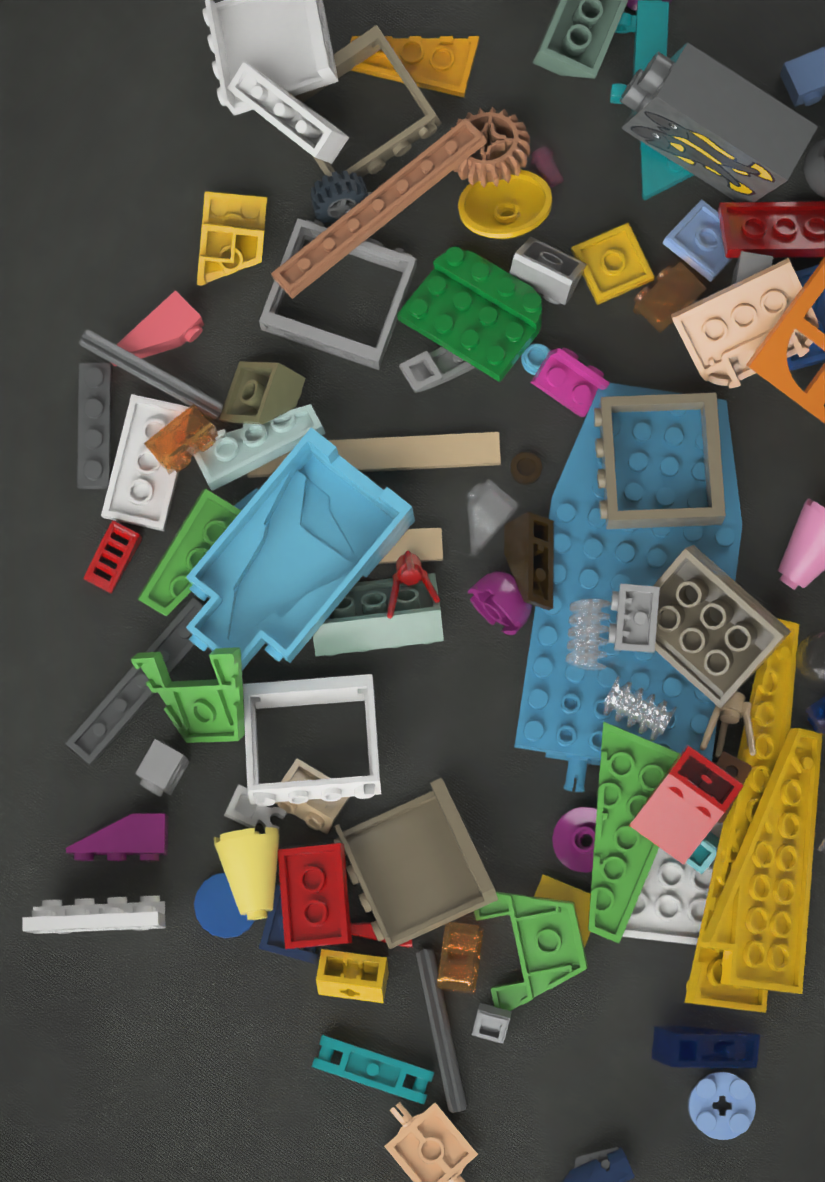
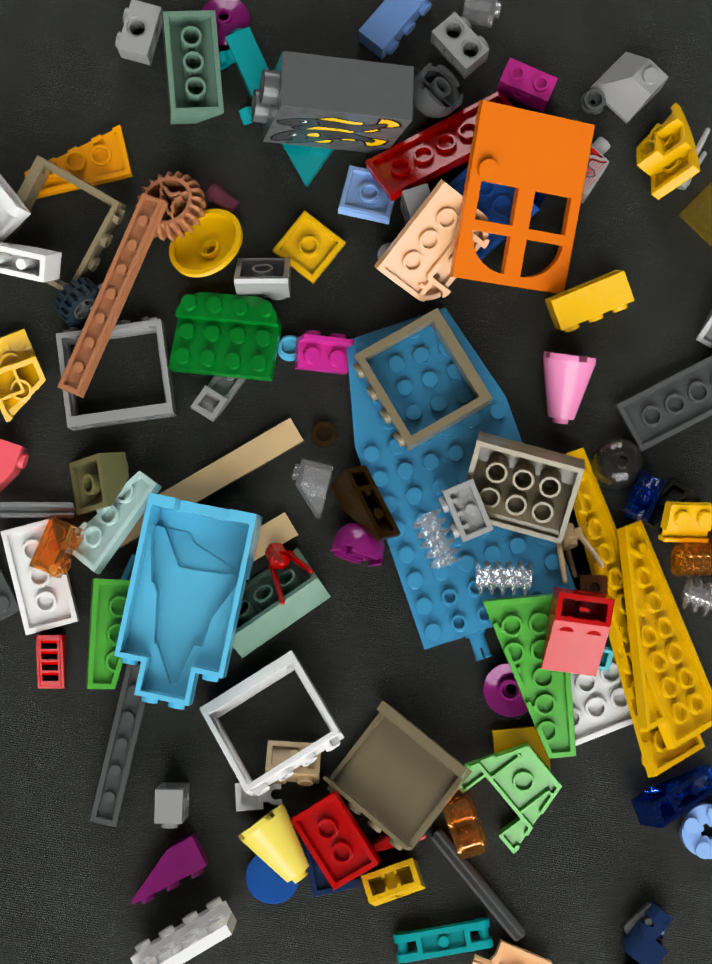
camera: 30 degrees left, 5 degrees up
(201, 707) = (175, 744): bright green wing -> none
(491, 1023) = (512, 860): tile -> none
(673, 292) = (365, 250): clear orange bracket -> none

